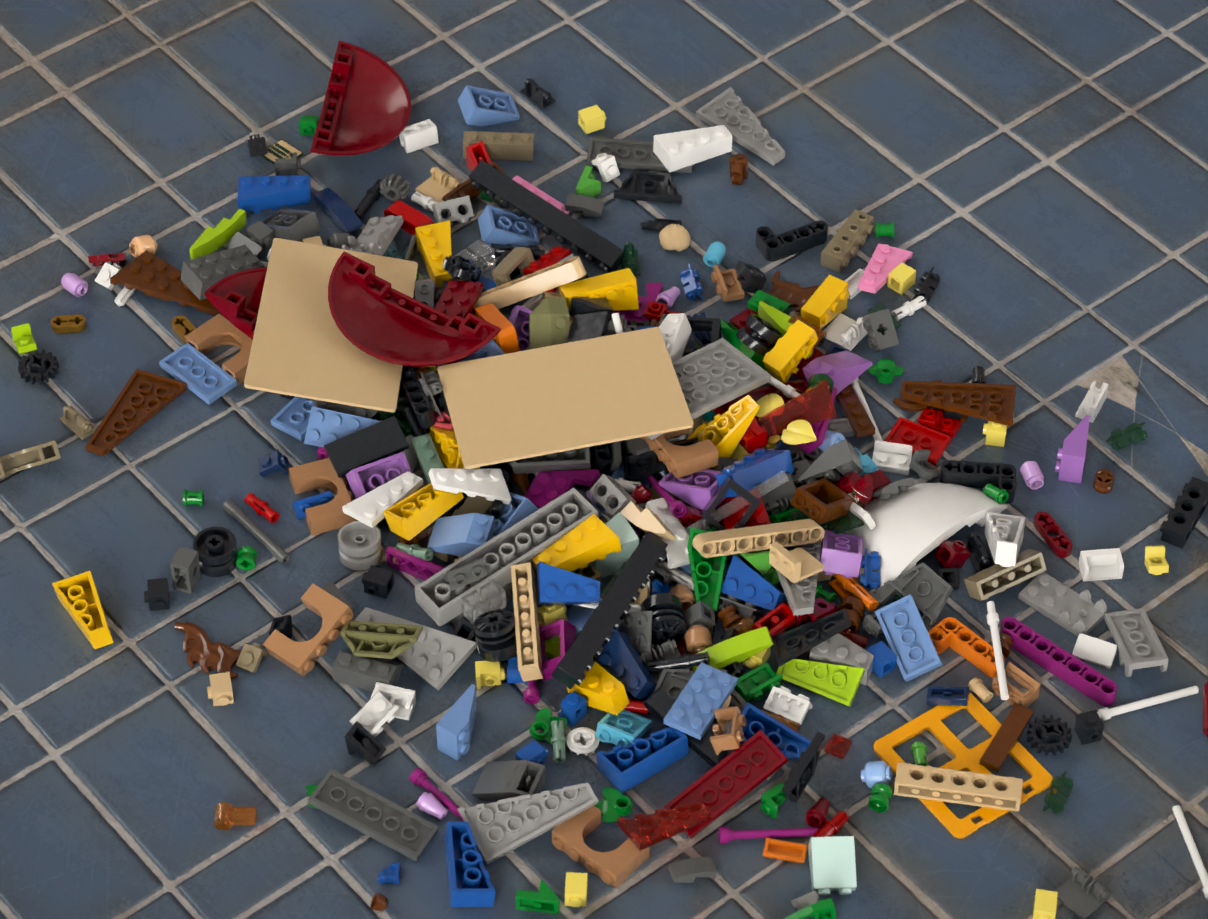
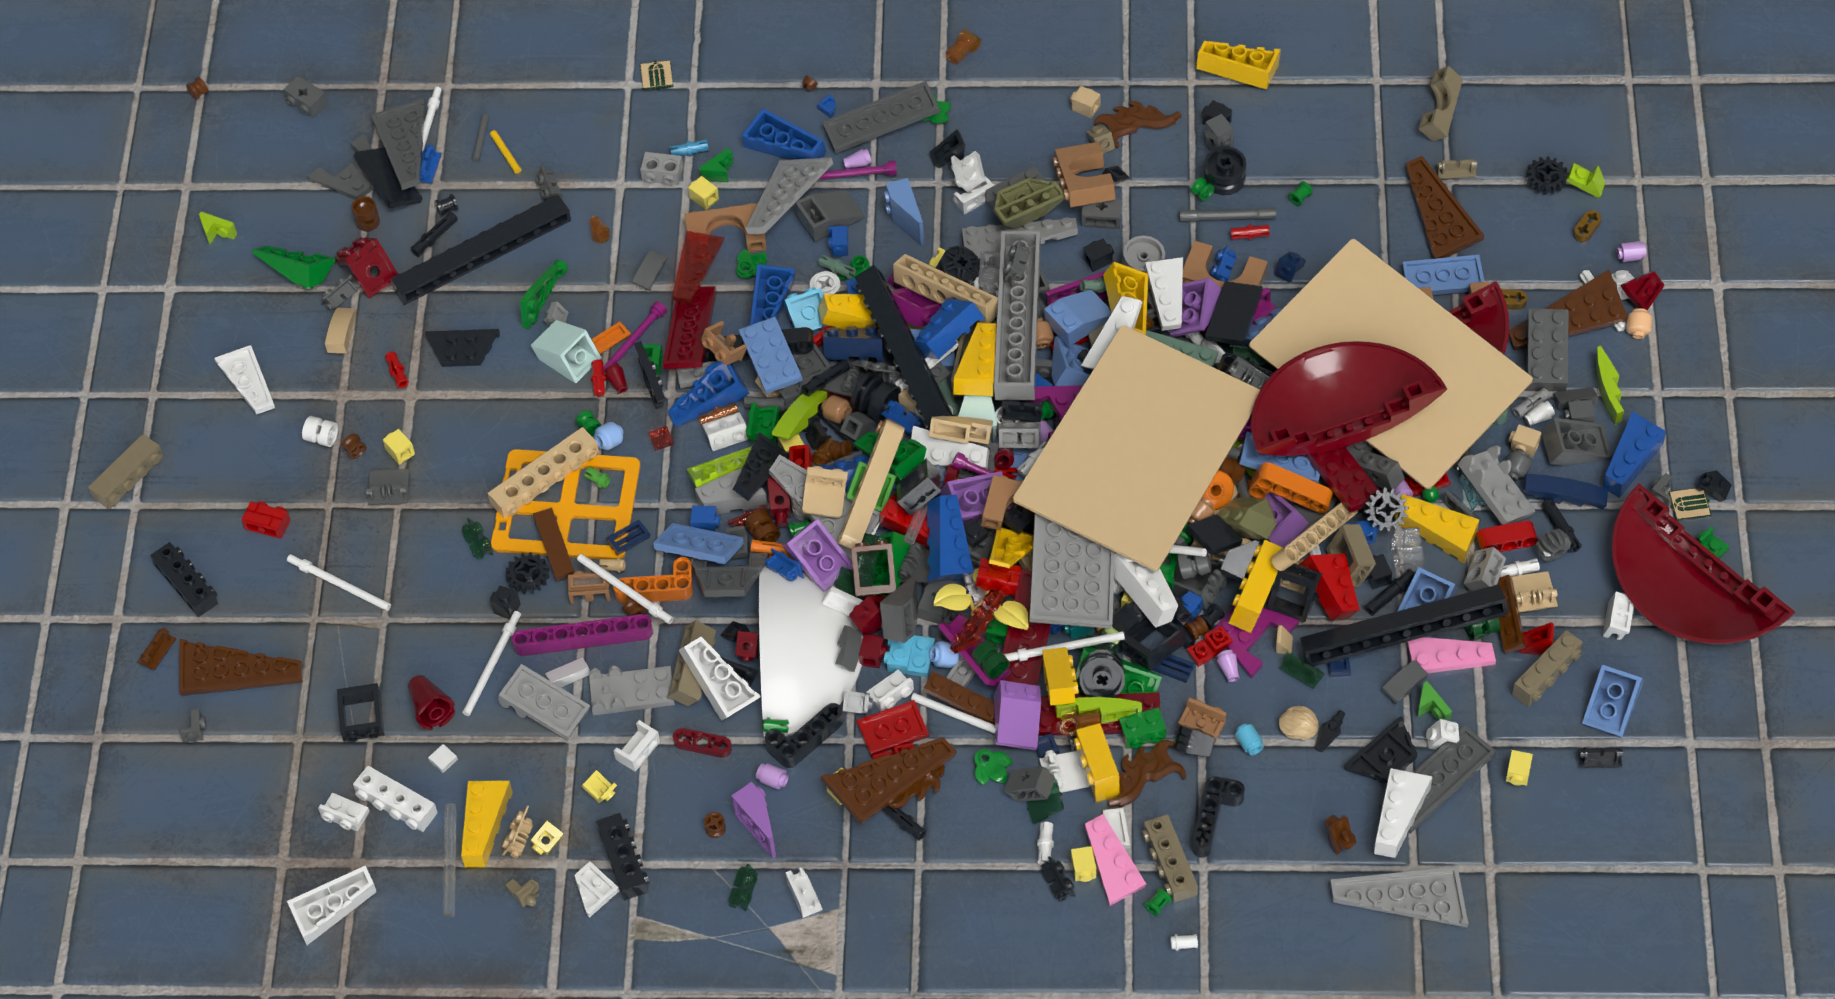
camera: 135 degrees right, 10 degrees up
(695, 288) = (1226, 697): blue hinge -> none
(898, 205) = (1183, 942): none -> white pin

